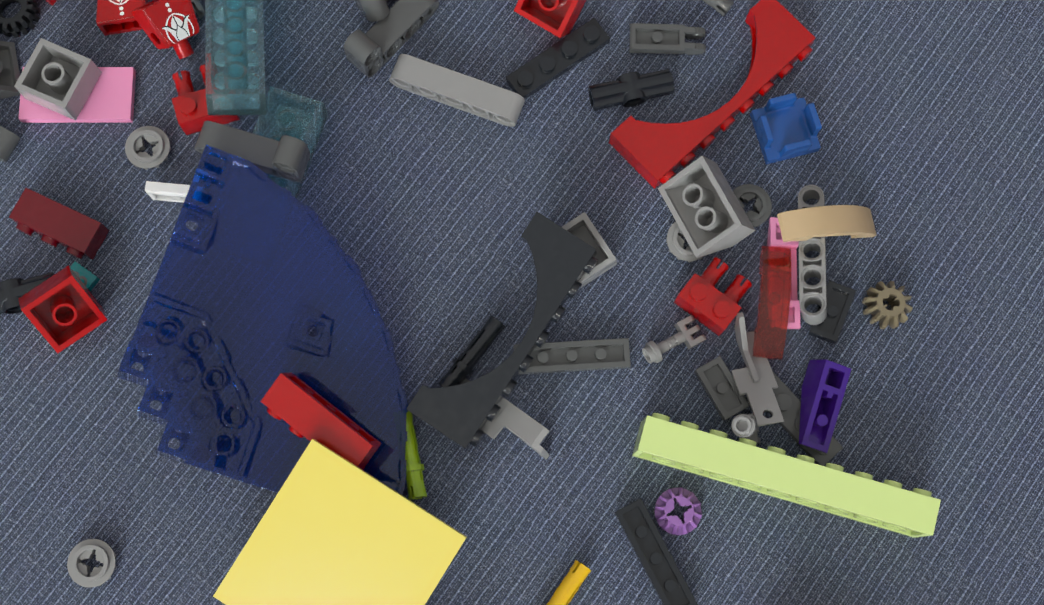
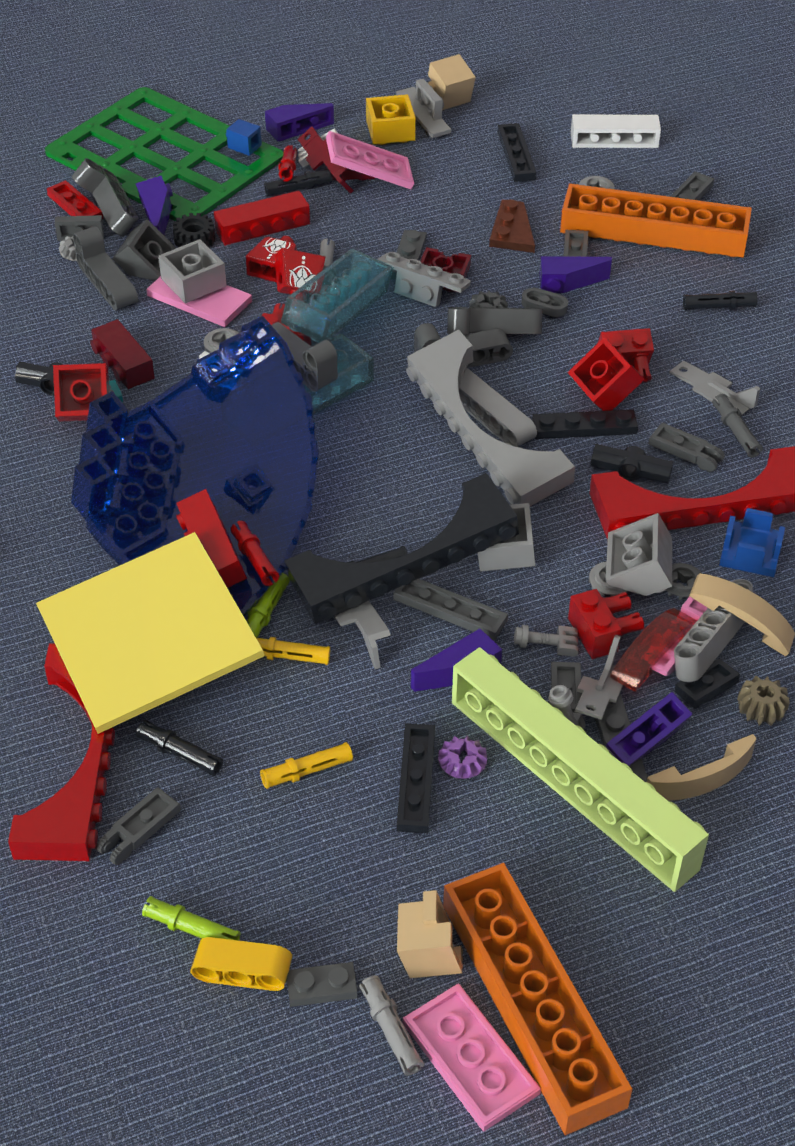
camera: 35 degrees right, 30 degrees down
(374, 416) = (250, 546): none -> red pin
(399, 87) = (521, 472): none -> light grey arch
(465, 489) = (294, 651): none -> yellow pin
(624, 410) = (438, 670): none -> dark purple slope
(898, 381) = (706, 778): none -> tan slope

